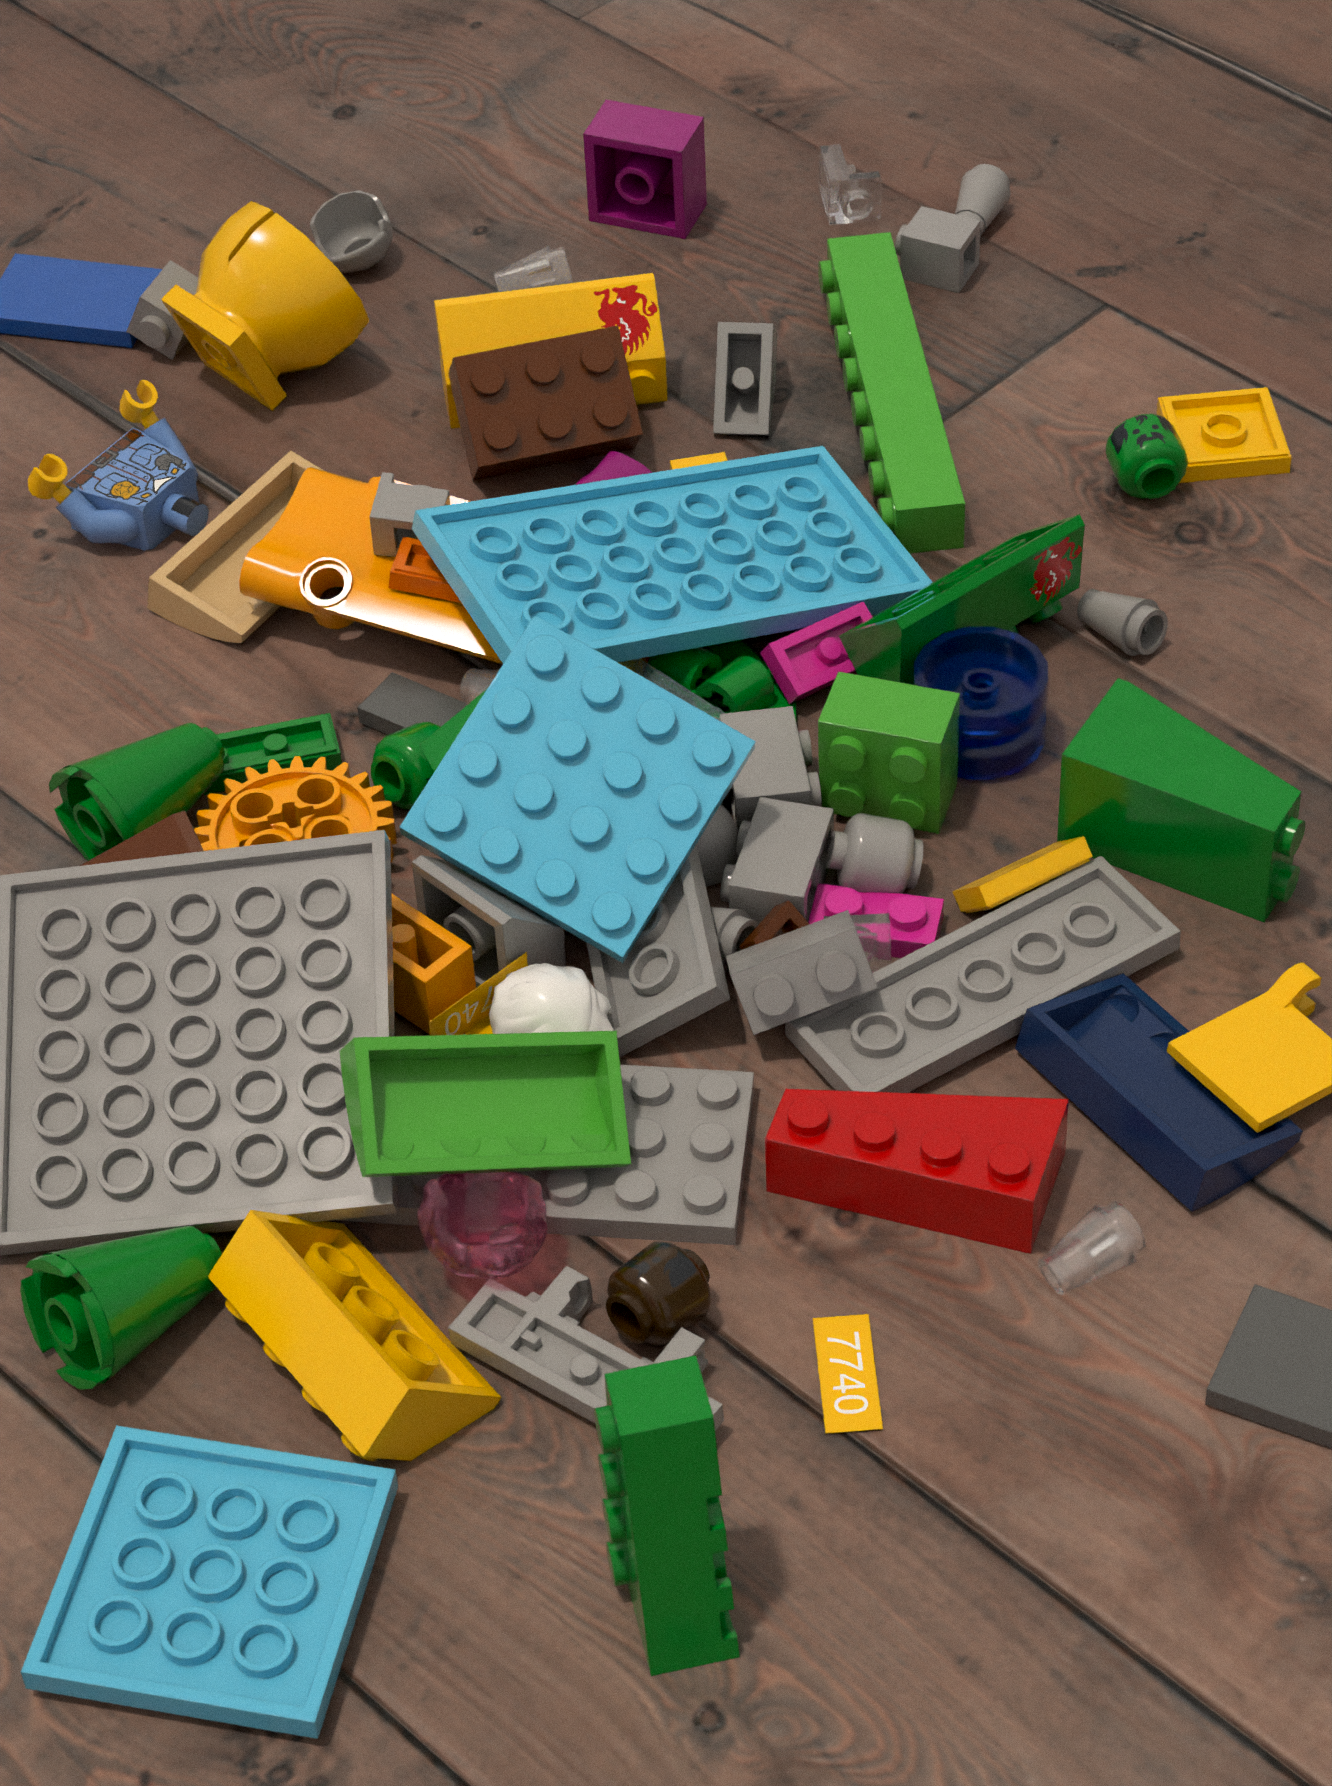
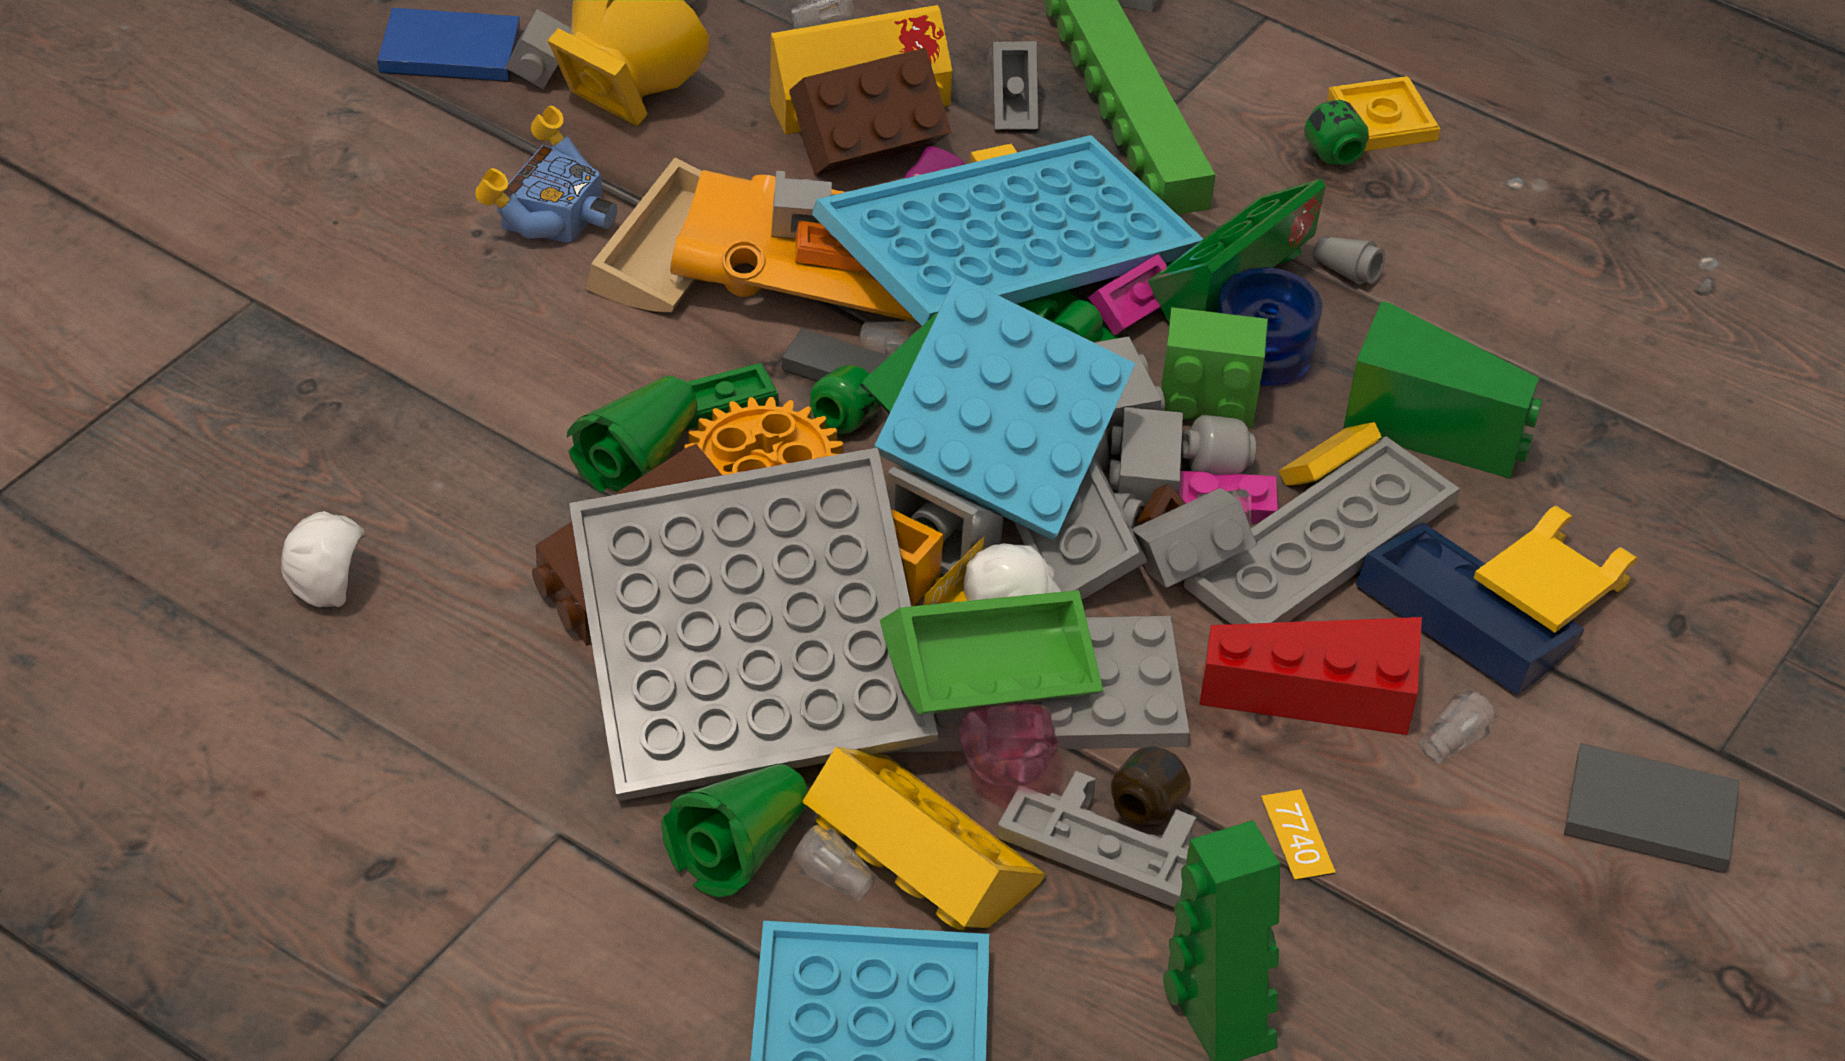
camera: 15 degrees left, 0 degrees up
(229, 1358) = (833, 863): none -> clear cone

